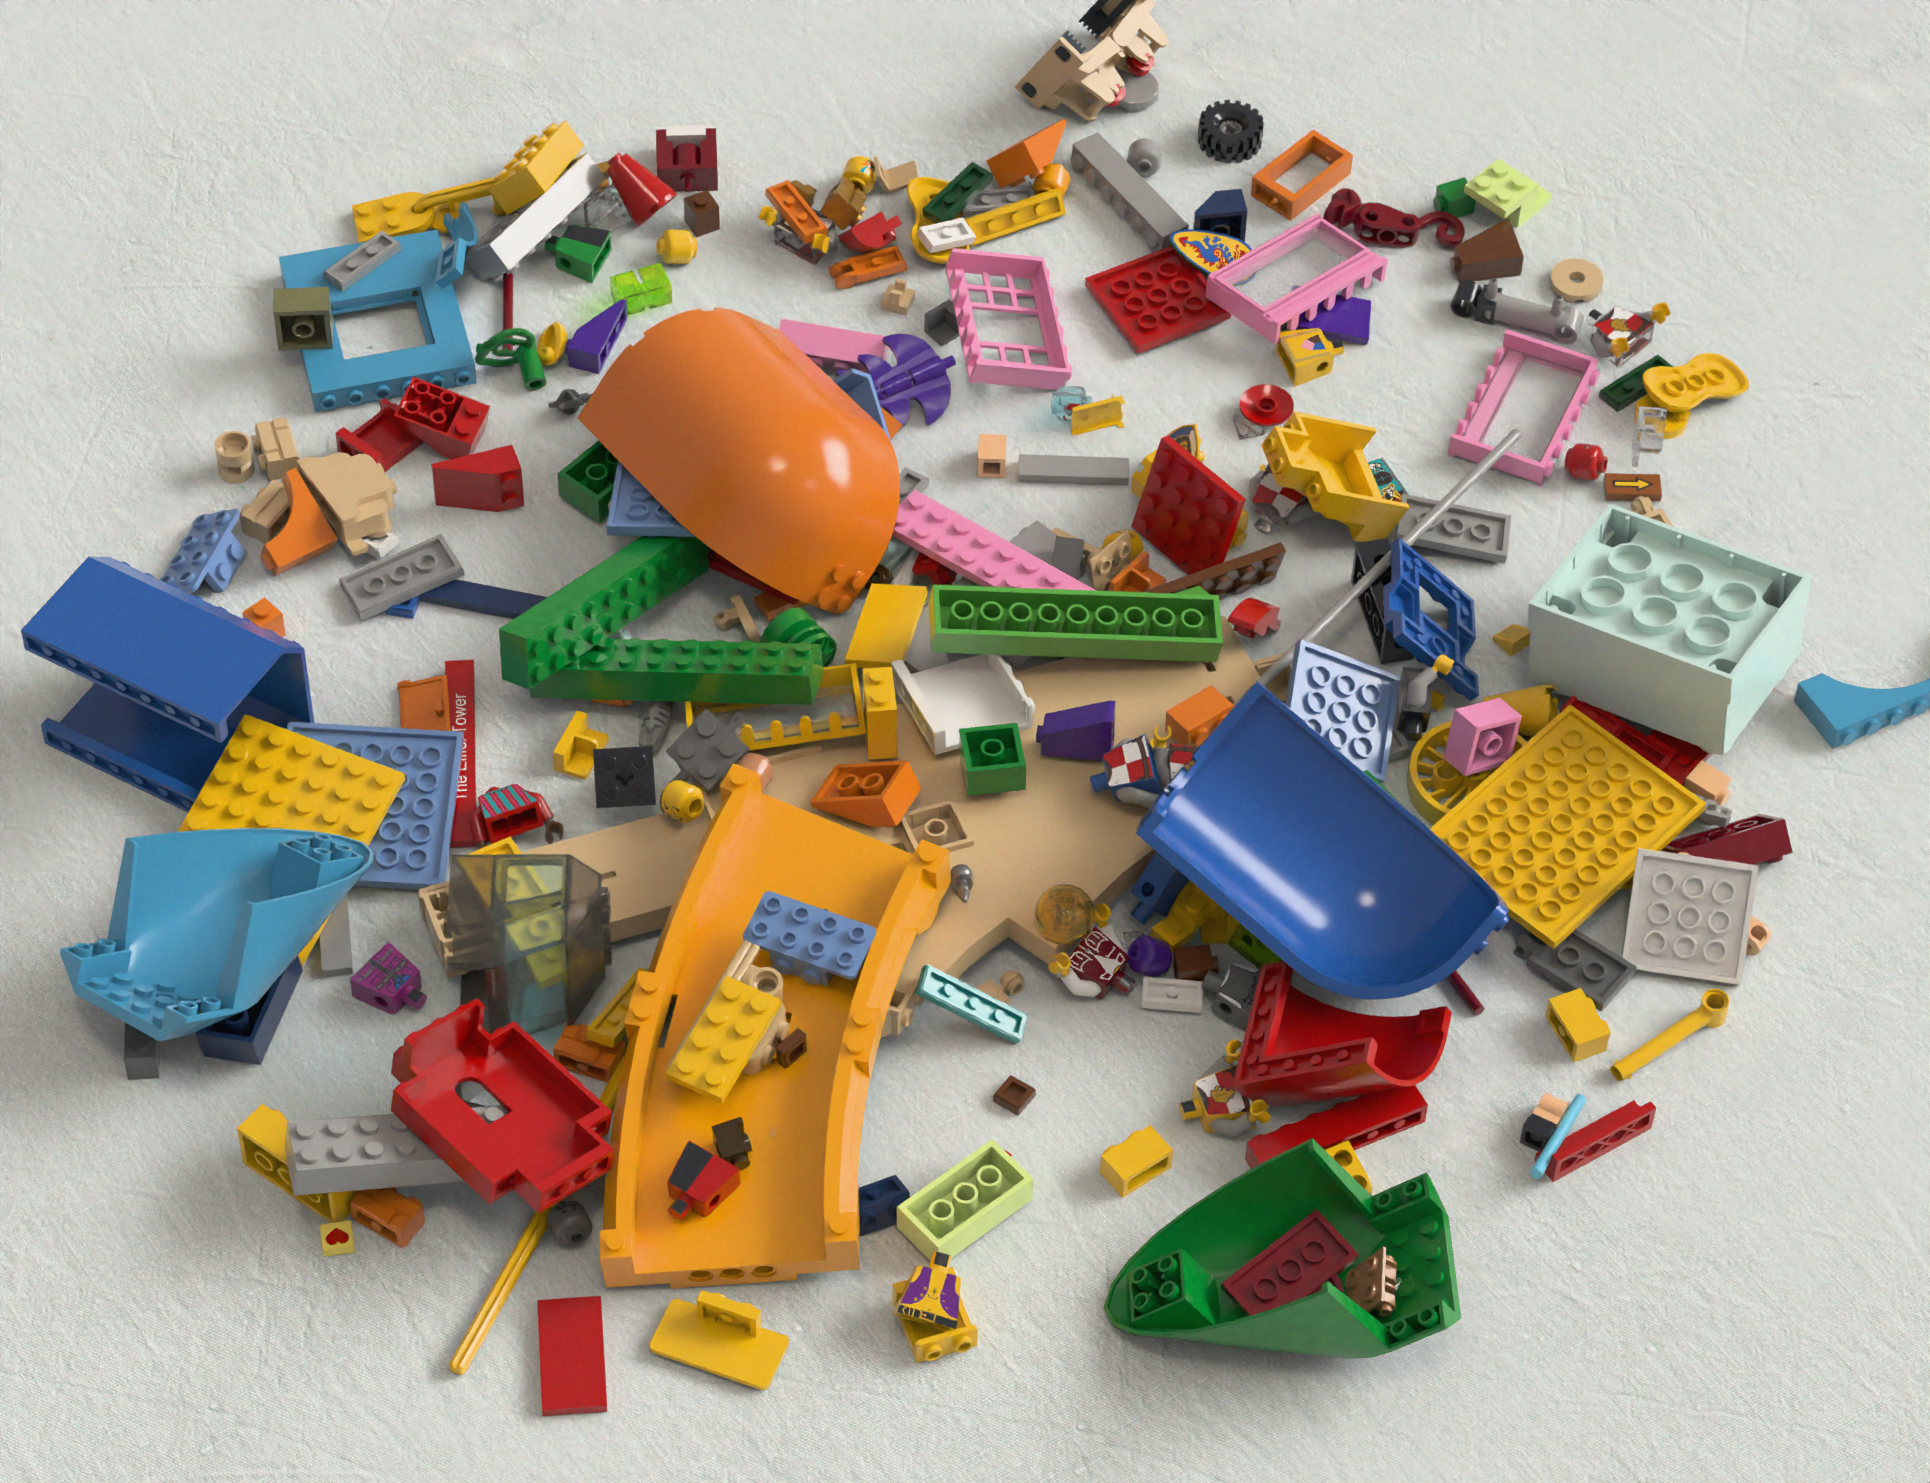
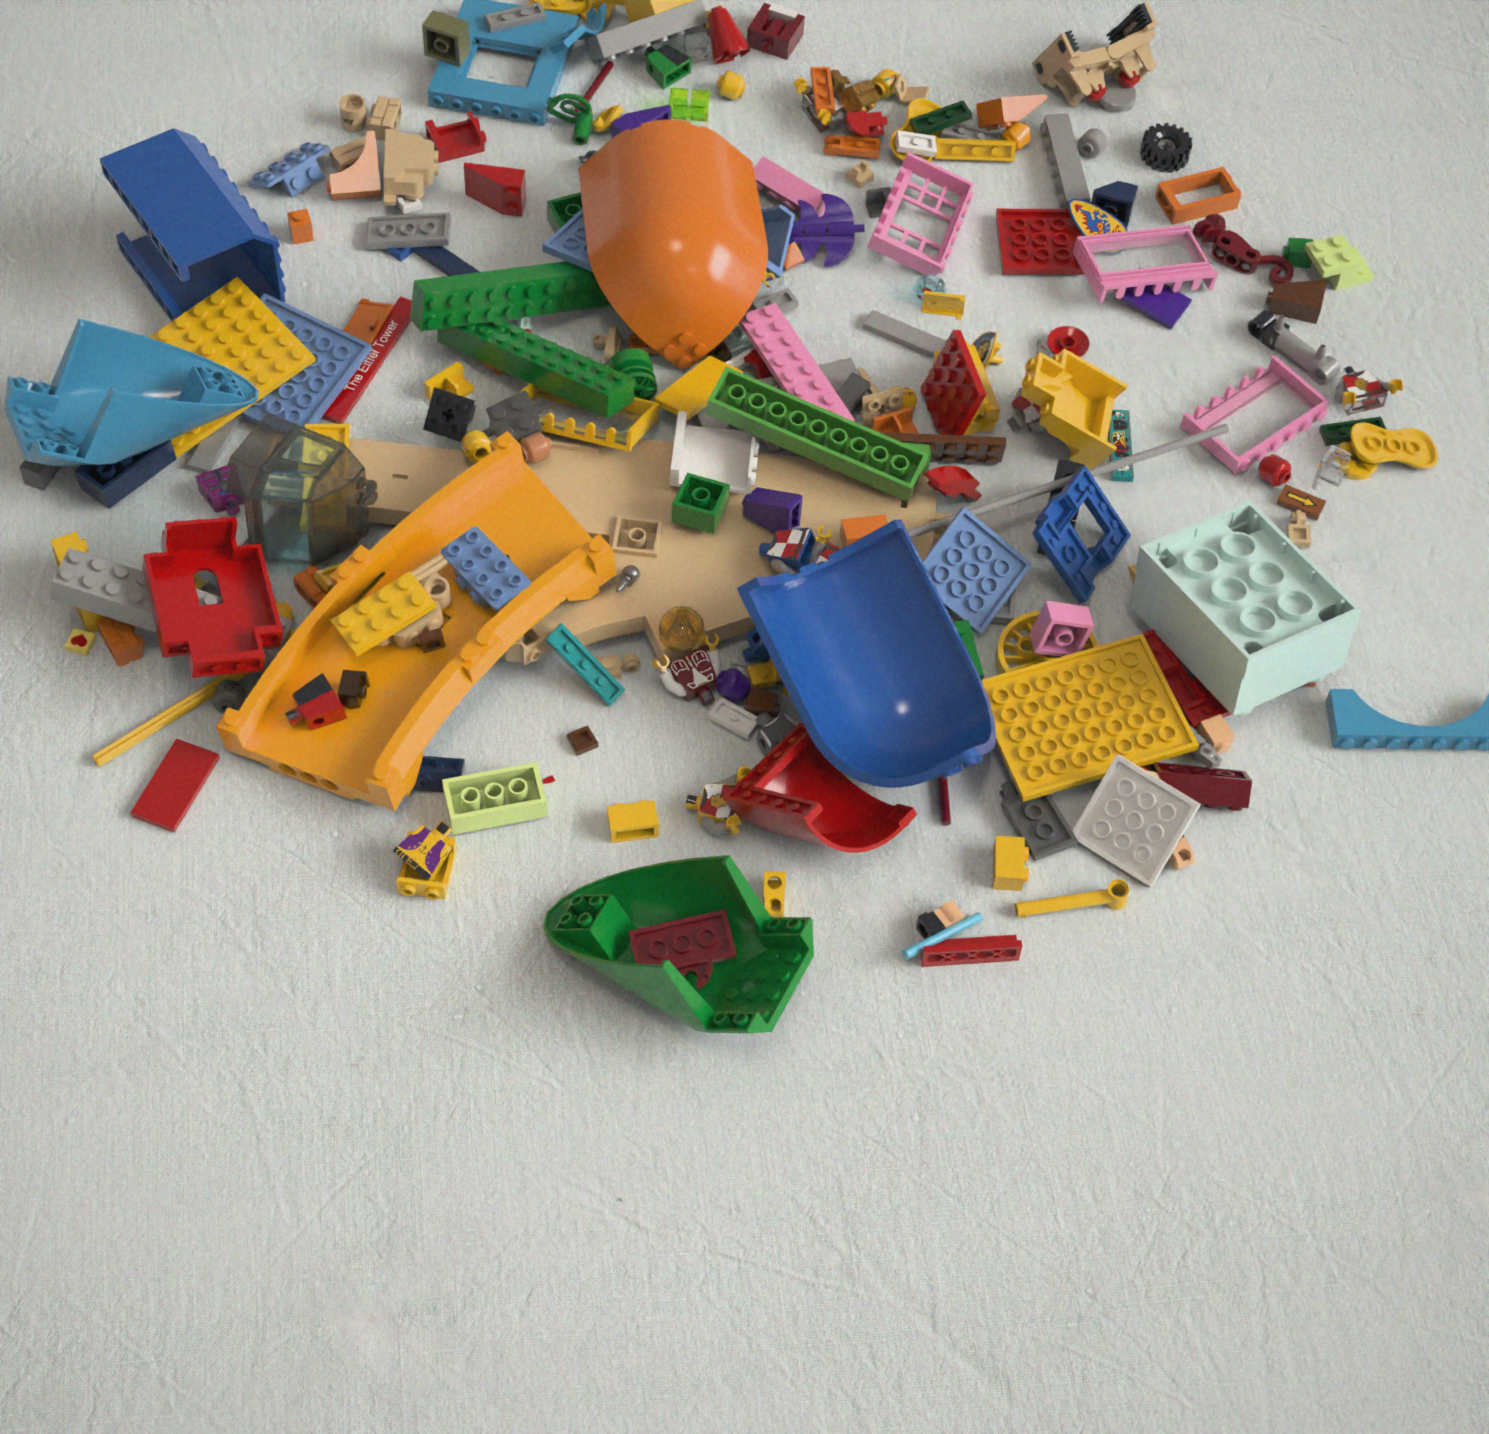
camera: 25 degrees right, 5 degrees up
(442, 418) = (499, 137): red slope -> none
(510, 812) = (371, 411): red torso -> none
(655, 723) = (507, 389): light grey hinge -> none
(701, 213) = (762, 69): reddish brown brick -> none
(720, 1339) = (275, 818): yellow bracket -> none
(869, 792) = (605, 492): orange slope -> none
(880, 713) = (643, 440): yellow brick -> none
(991, 456) = (852, 303): light nougat brick -> none
(1307, 354) = (1121, 319): yellow torso -> none
(1359, 1121) = (798, 860): red brick -> none
(1374, 1283) = (730, 981): medium nougat hinge -> none
(1417, 698) = (1035, 584): torso -> none
(1458, 530) = (1150, 481): light grey plate -> none
(1534, 706) = (1115, 624): yellow cone -> none
(1576, 269) = (1356, 333): tan tile -> none

